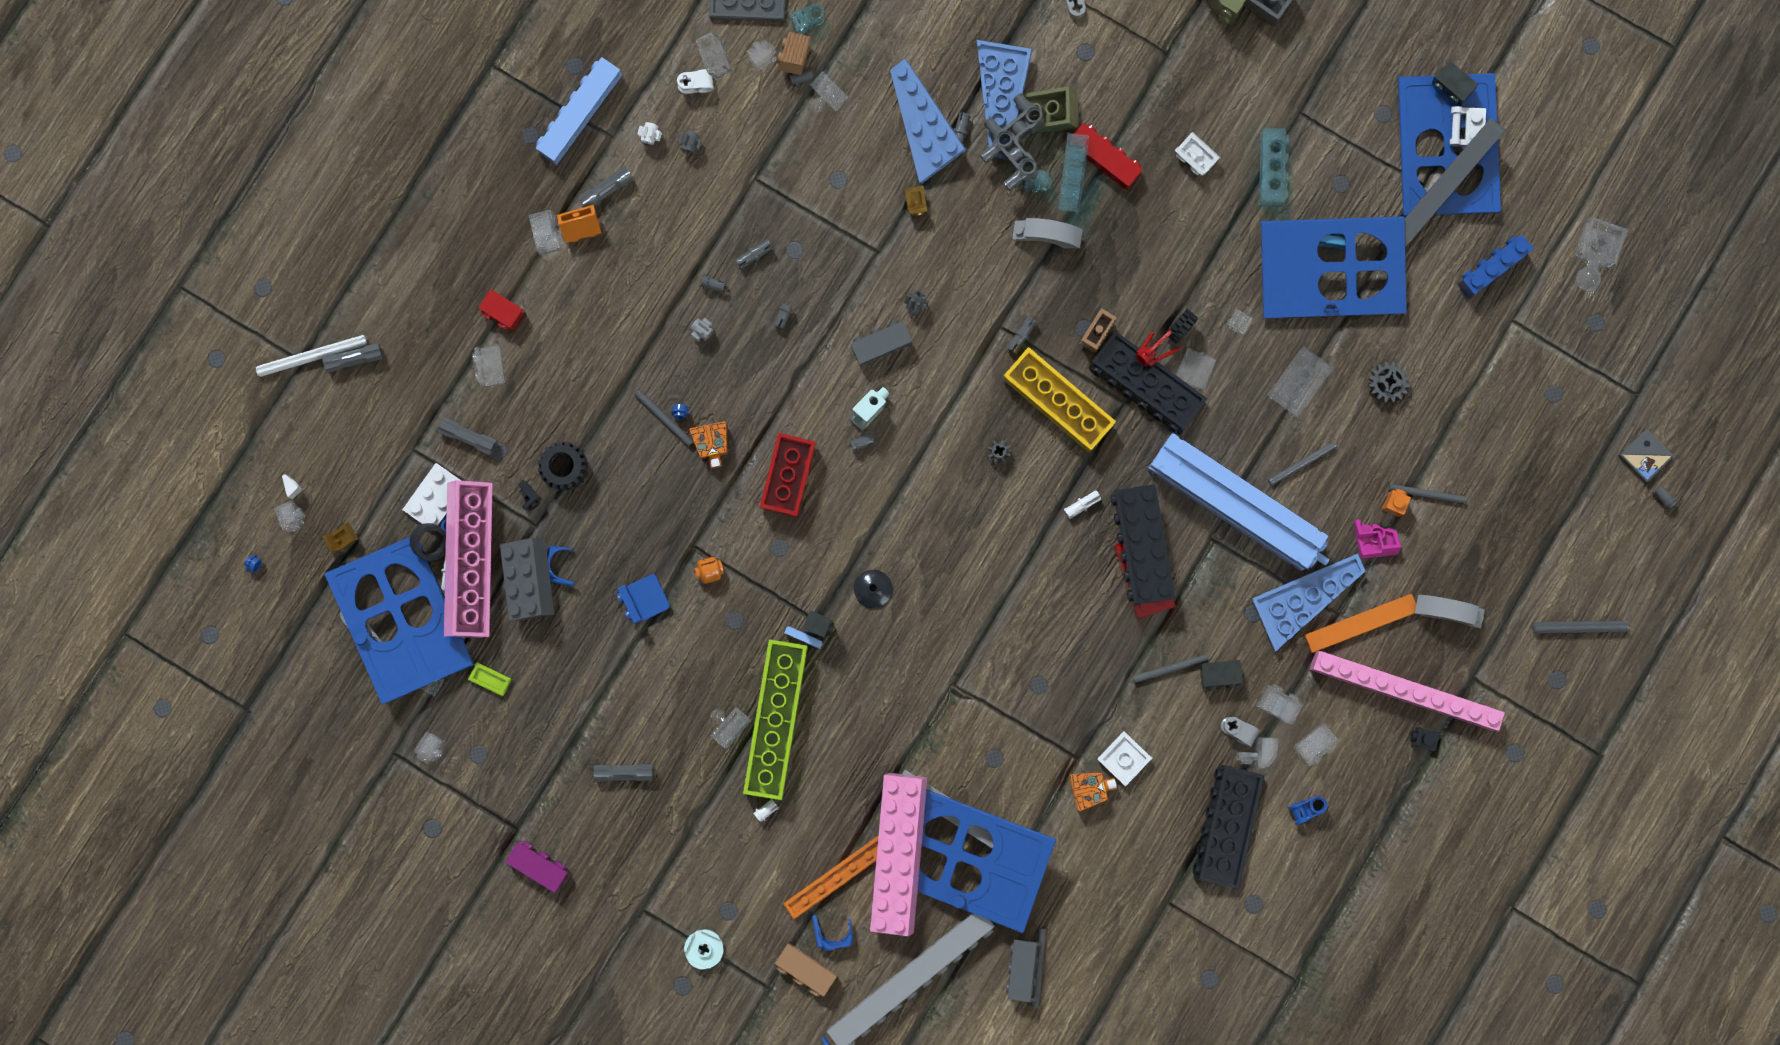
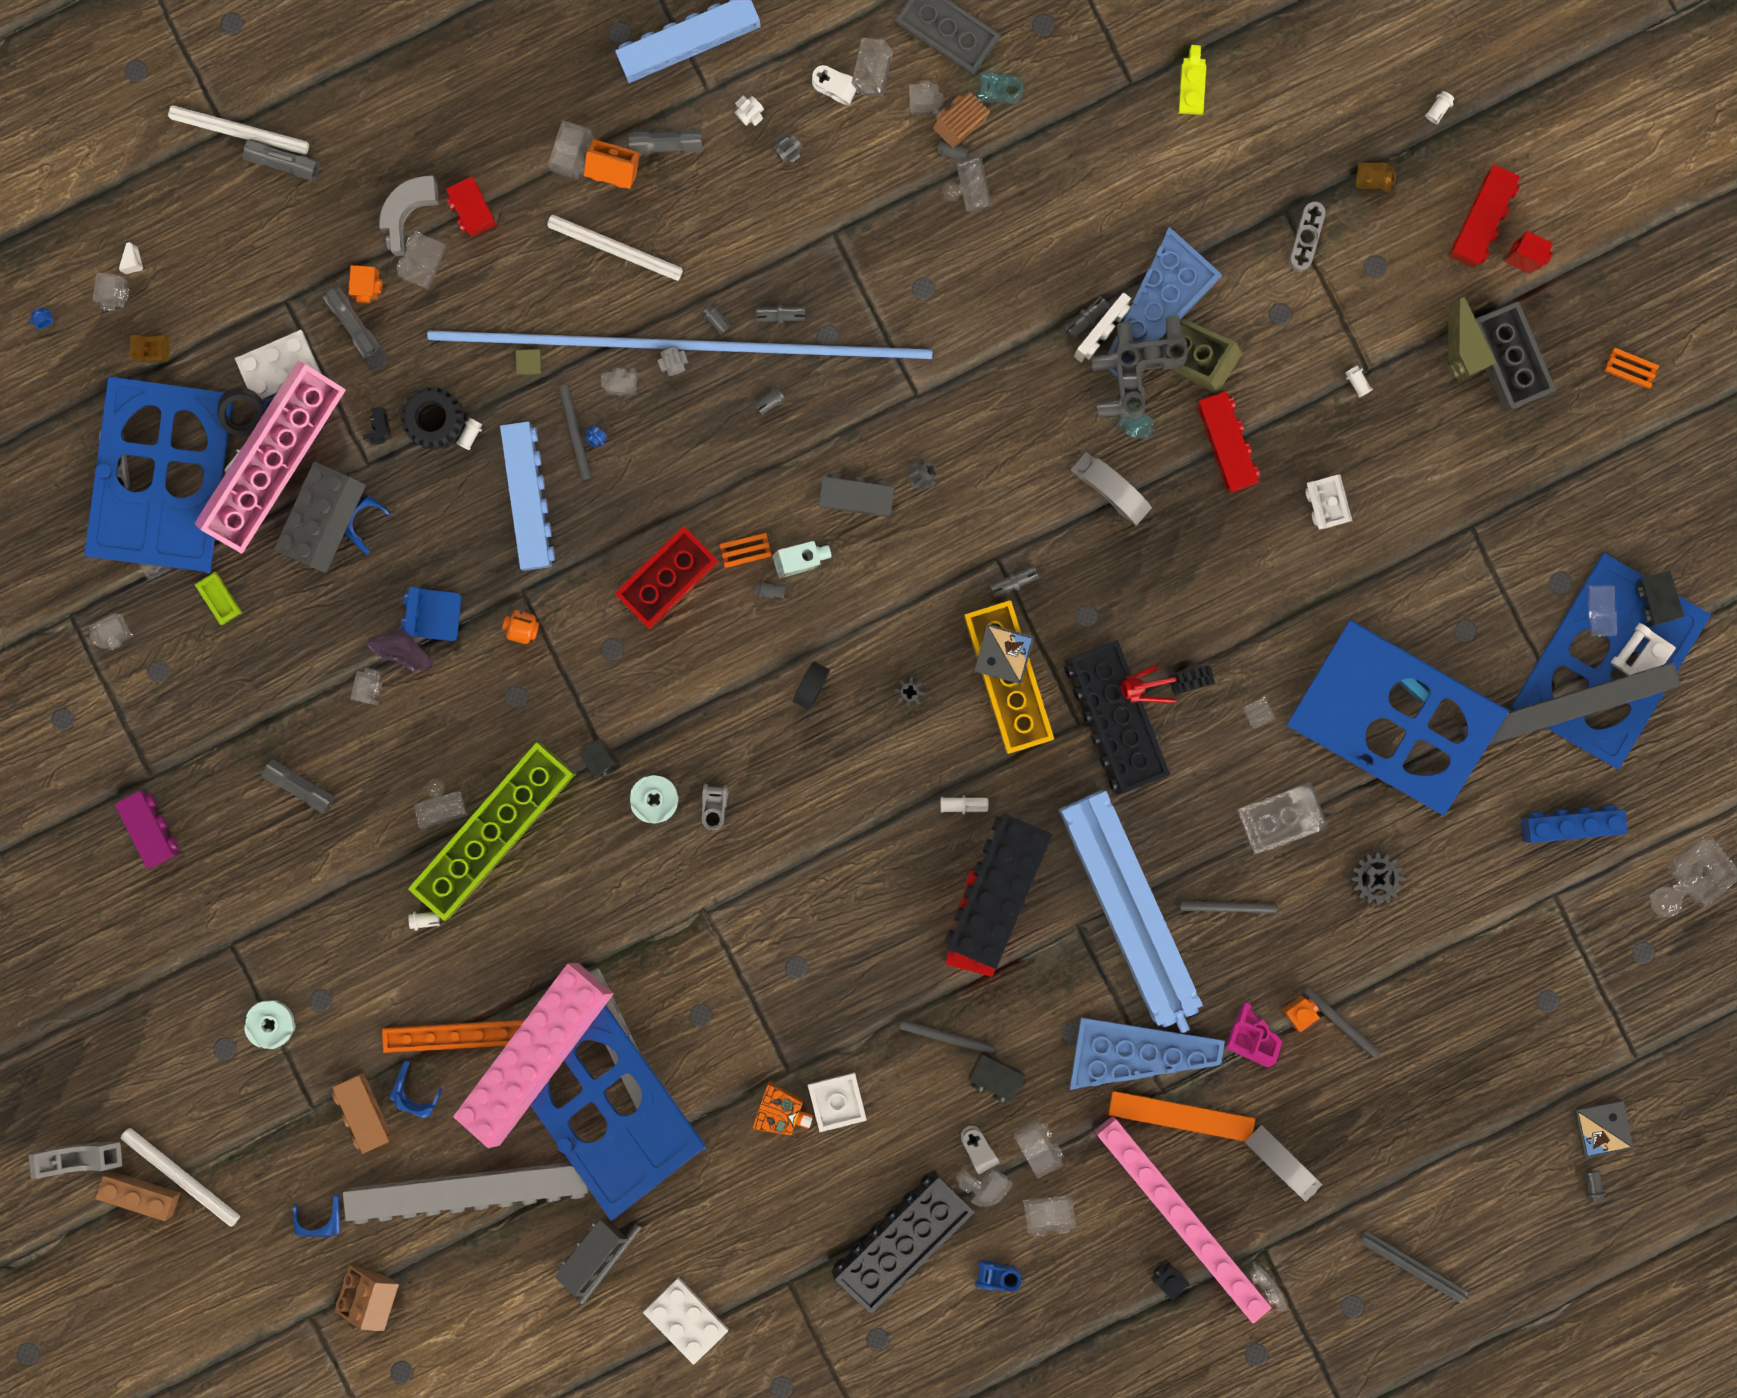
camera: 30 degrees right, 5 degrees up
(452, 335) = (400, 203): none -> light grey arch
(460, 405) = (364, 283): none -> orange brick
(593, 462) = (469, 433): none -> white pin
(603, 390) = (528, 362): none -> olive tile
(615, 278) = (614, 247): none -> white axle
(629, 675) = (367, 686): none -> clear brick
(637, 634) = (400, 648): none -> clear purple tile
(658, 480) = (526, 496): none -> light blue brick
(674, 365) = (620, 382): none -> clear brick
(702, 314) = (680, 344): none -> light blue piece
(711, 442) = (608, 490): orange torso -> none
(803, 637) = (576, 761): light blue tile -> none
(823, 420) = (765, 545): none -> orange tile
(876, 598) = (697, 754): black dish -> none
(880, 624) = (655, 813): none -> light aqua plate
(914, 609) = (714, 804): none -> light grey piece
(916, 200) = (992, 363): pearl gold bracket -> none
(927, 129) = (1053, 295): medium blue wing -> none
(930, 487) = (811, 685): none -> black tyre
(976, 131) = (1103, 328): none -> white plate
(1046, 385) = (1003, 654): none -> tile
(1073, 172) = (1181, 439): clear light blue brick -> none
(1098, 330) = (1098, 628): medium nougat brick -> none
(1116, 974) = (686, 1320): none -> white plate
(1165, 64) = (1358, 381): none -> white pin
(1196, 368) = (1179, 733): clear piece -> none
(1267, 196) = (1376, 594): clear light blue brick -> none
(1422, 114) = (1602, 610): none -> clear slope
(1487, 698) = (1264, 1281): none -> clear slope

